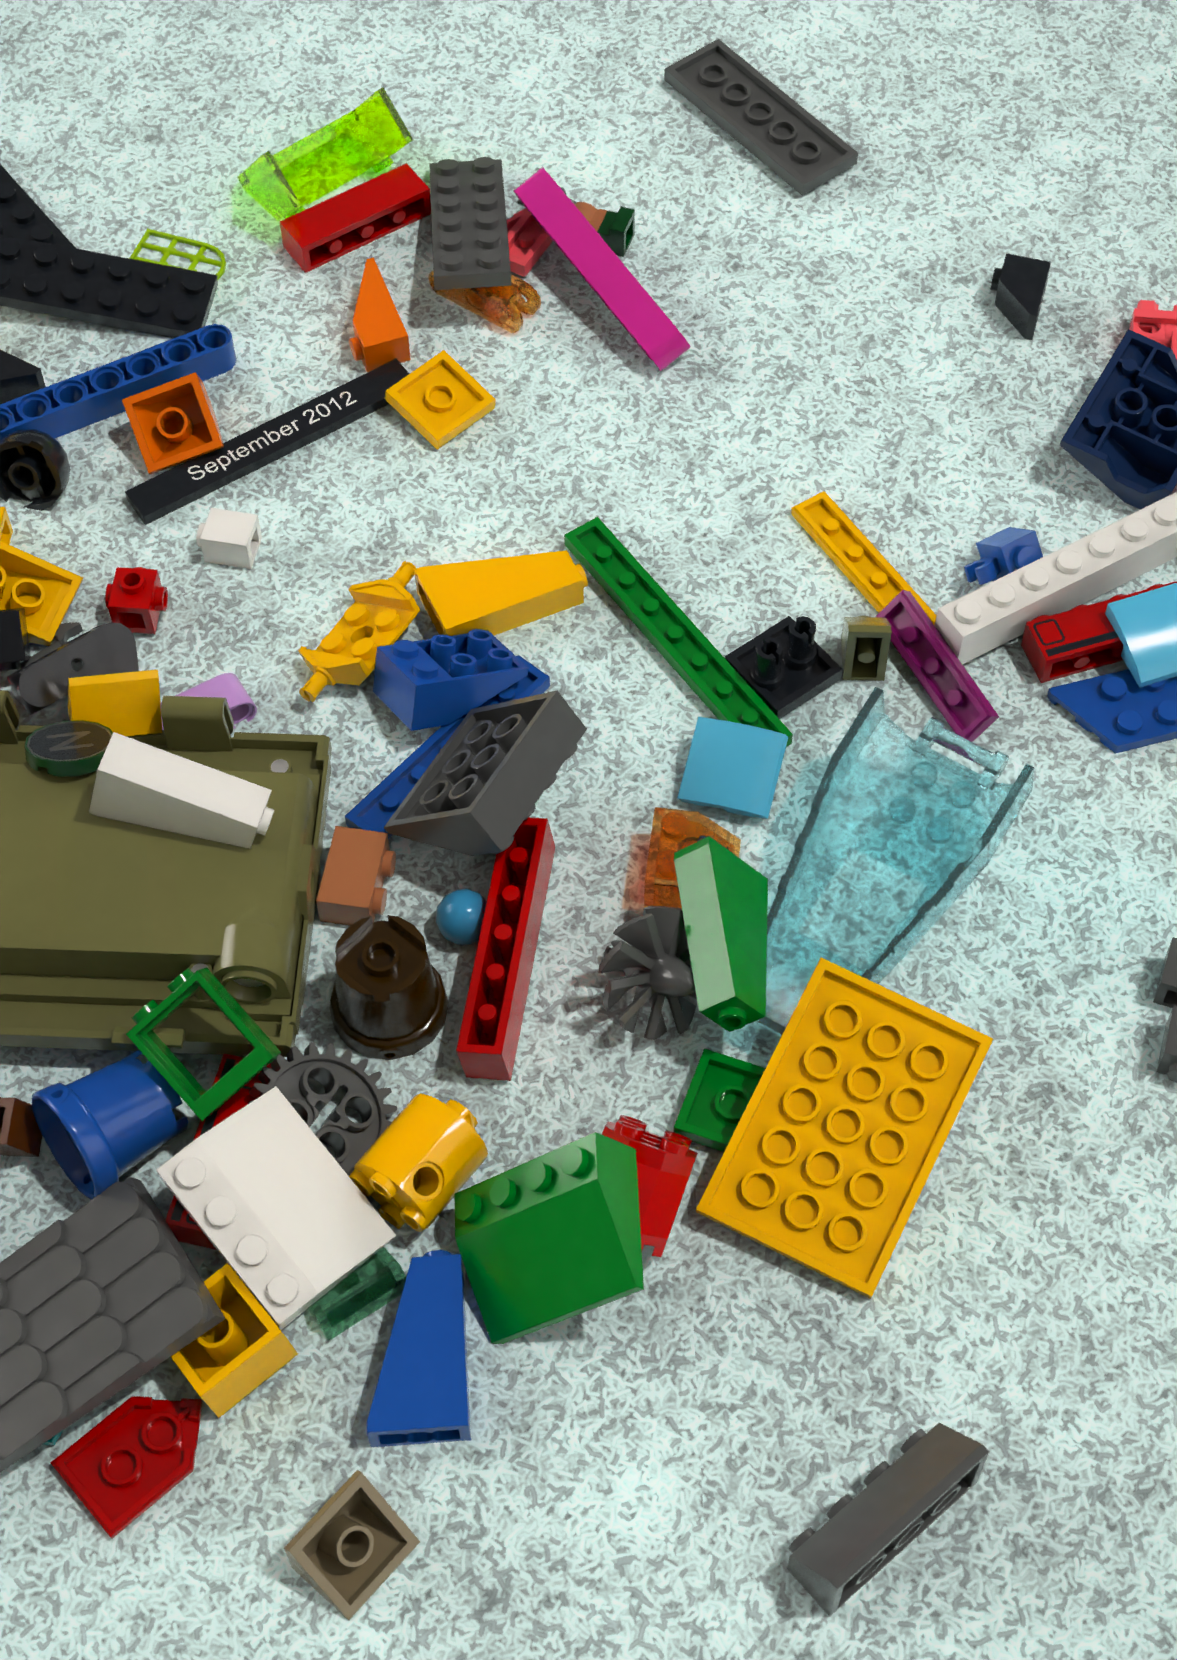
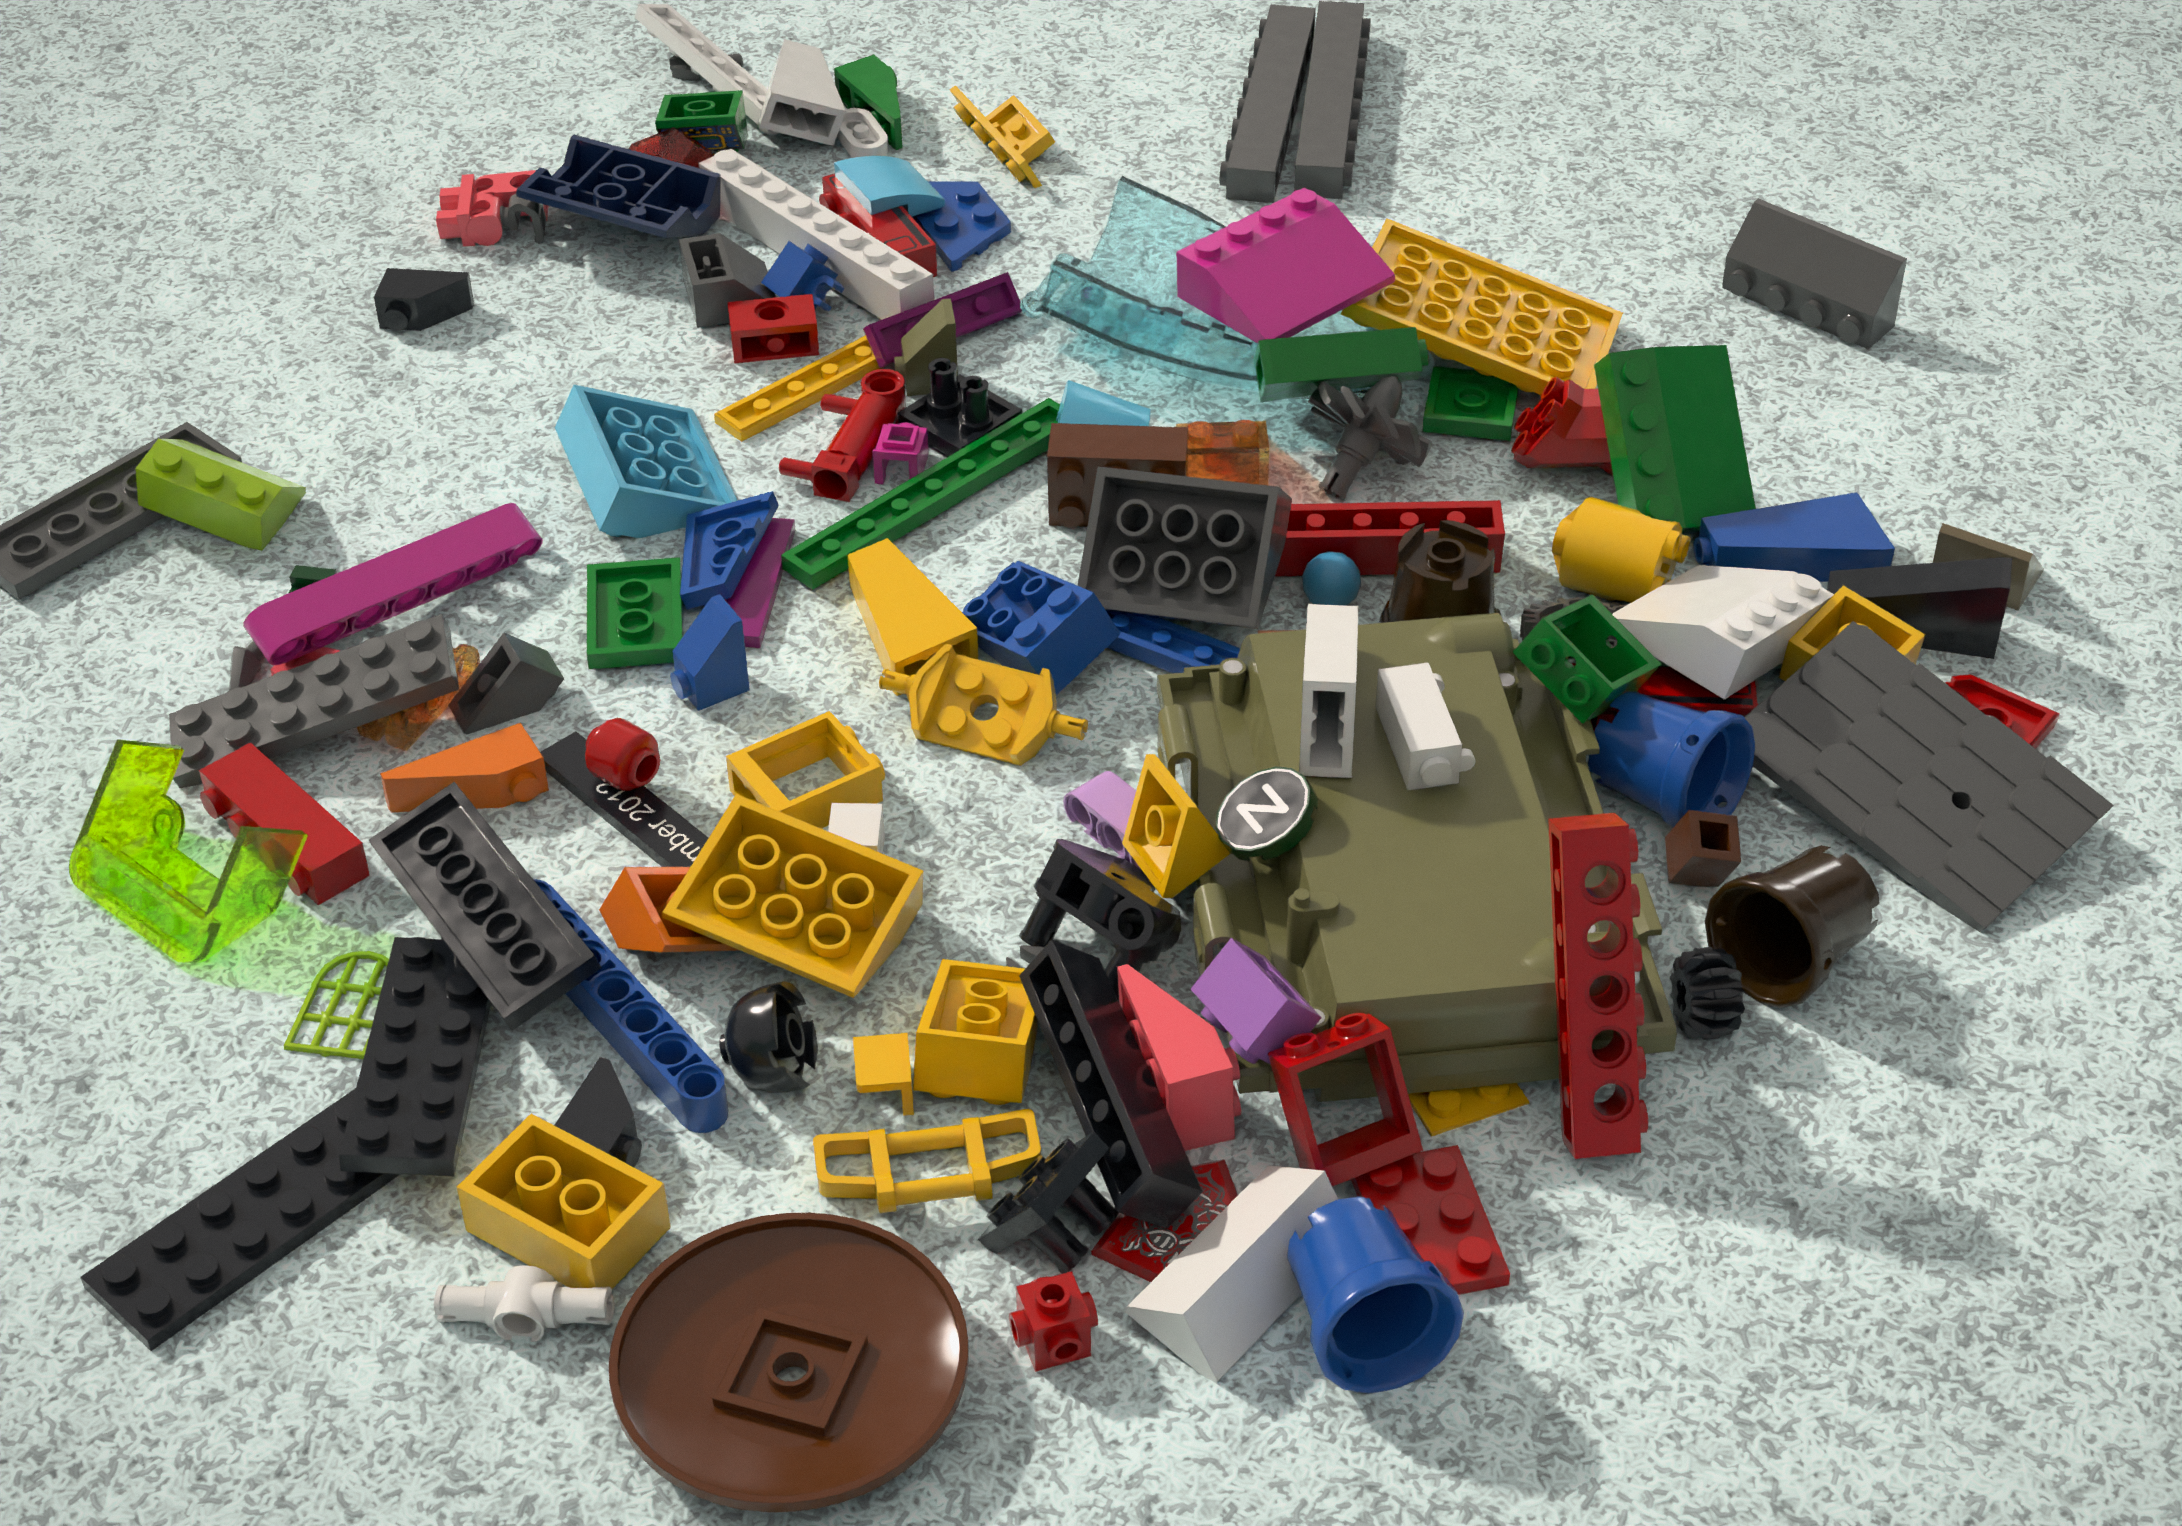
camera: 100 degrees left, 15 degrees down
(109, 858) = (1420, 727): none -> white brick
(136, 599) = (971, 898): red brick -> none
(155, 484) = (798, 896): none -> yellow slope
(202, 304) = (485, 906): none -> black plate
(281, 1433) = (1950, 602): none -> black slope
(318, 478) = (821, 737): none -> yellow window
(351, 392) = (622, 754): none -> red head
(440, 399) = (607, 692): yellow plate -> none
(461, 461) = (711, 657): none -> blue slope
(475, 343) = (506, 685): none -> dark grey slope
(553, 423) = (633, 612): none -> green plate
(581, 504) = (760, 582): none -> magenta tile
(615, 477) = (721, 546): none -> blue wing
(630, 758) = (1080, 449): none -> reddish brown brick
(730, 615) = (900, 443): none -> dark pink window
(750, 435) = (639, 462): none -> medium azure slope
(751, 167) = (215, 492): none -> lime slope
(761, 587) = (850, 452): none -> red piece
(859, 896) = (1281, 268): none -> dark pink slope
(942, 536) = (773, 328): none -> red brick
(1018, 494) = (719, 273): none -> dark grey slope

